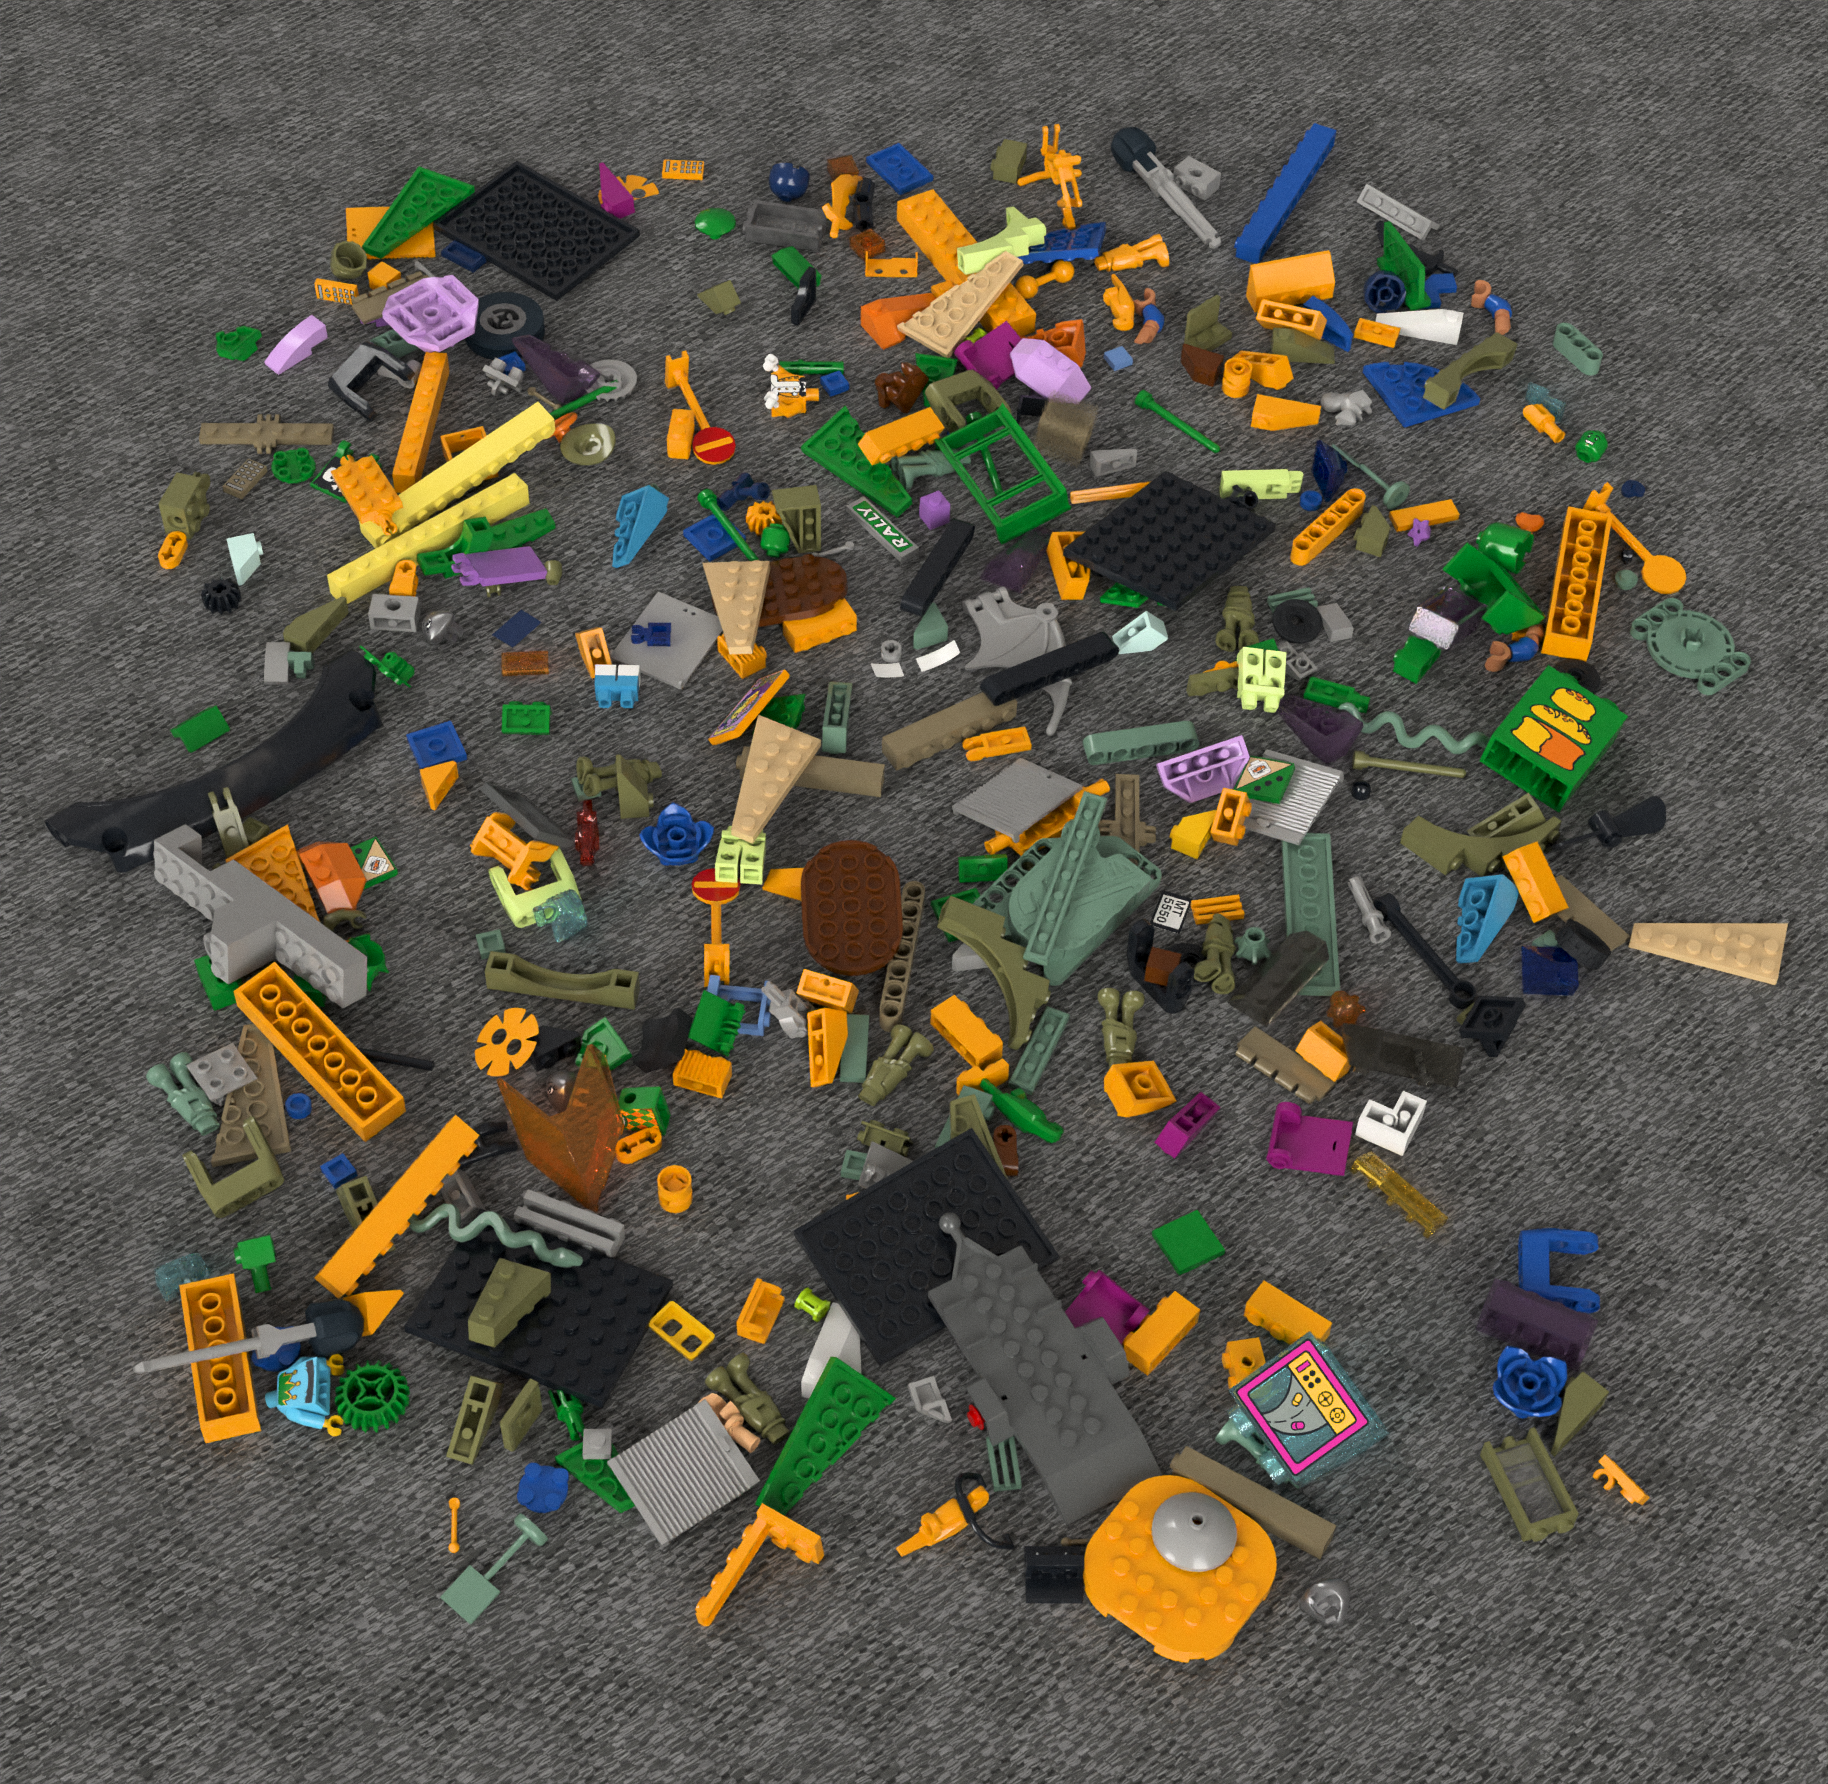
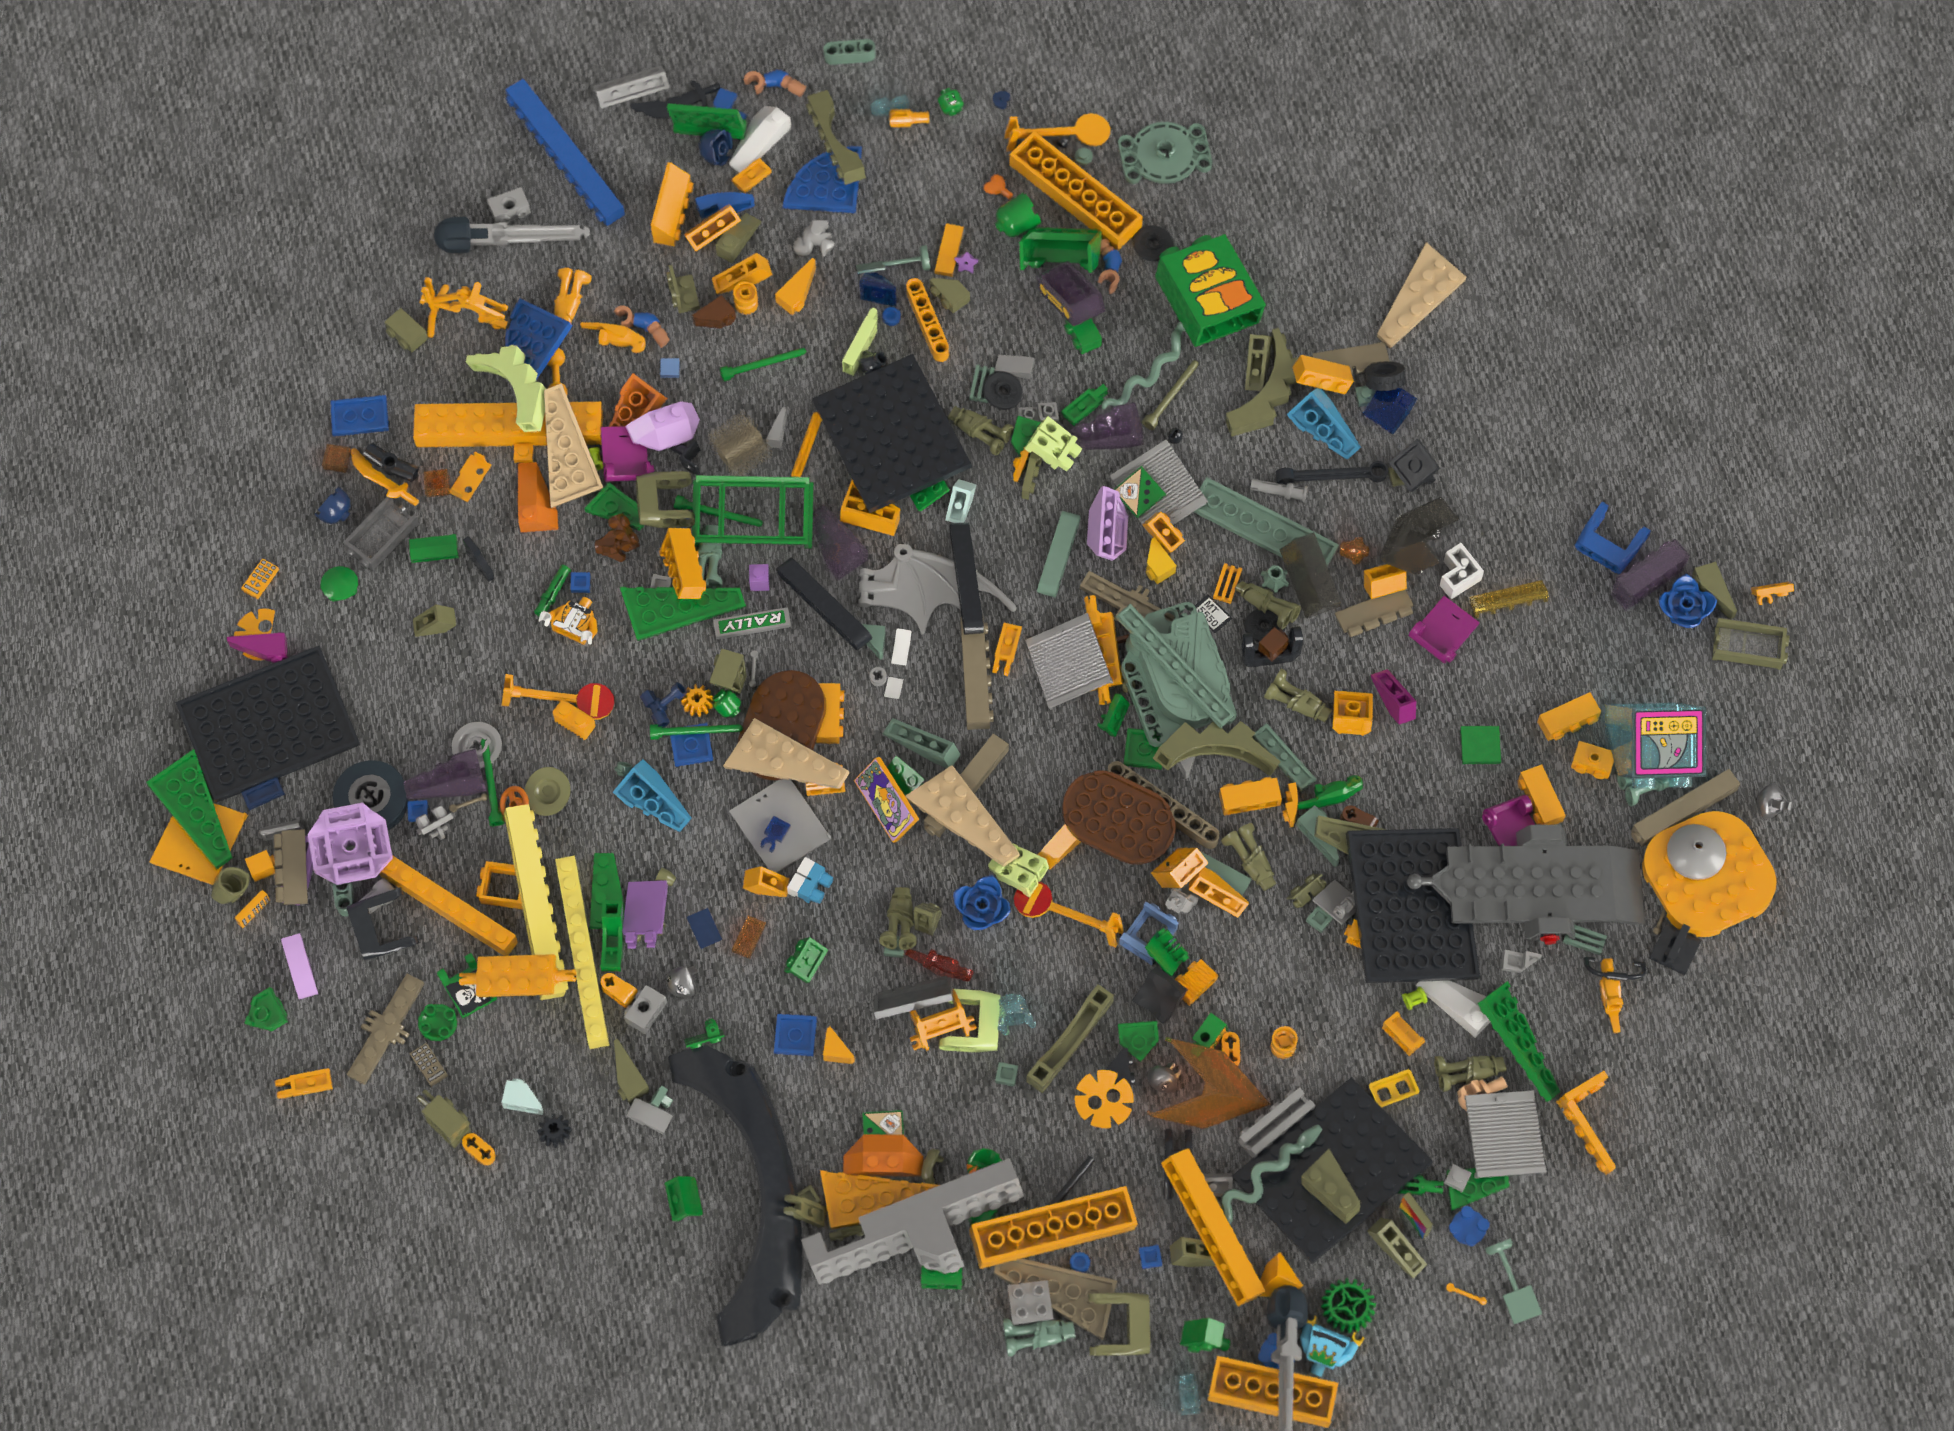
camera: 60 degrees left, 15 degrees up
(176, 399) = (305, 1083): none -> light orange hinge
(1639, 820) = (1297, 305): black piece -> none

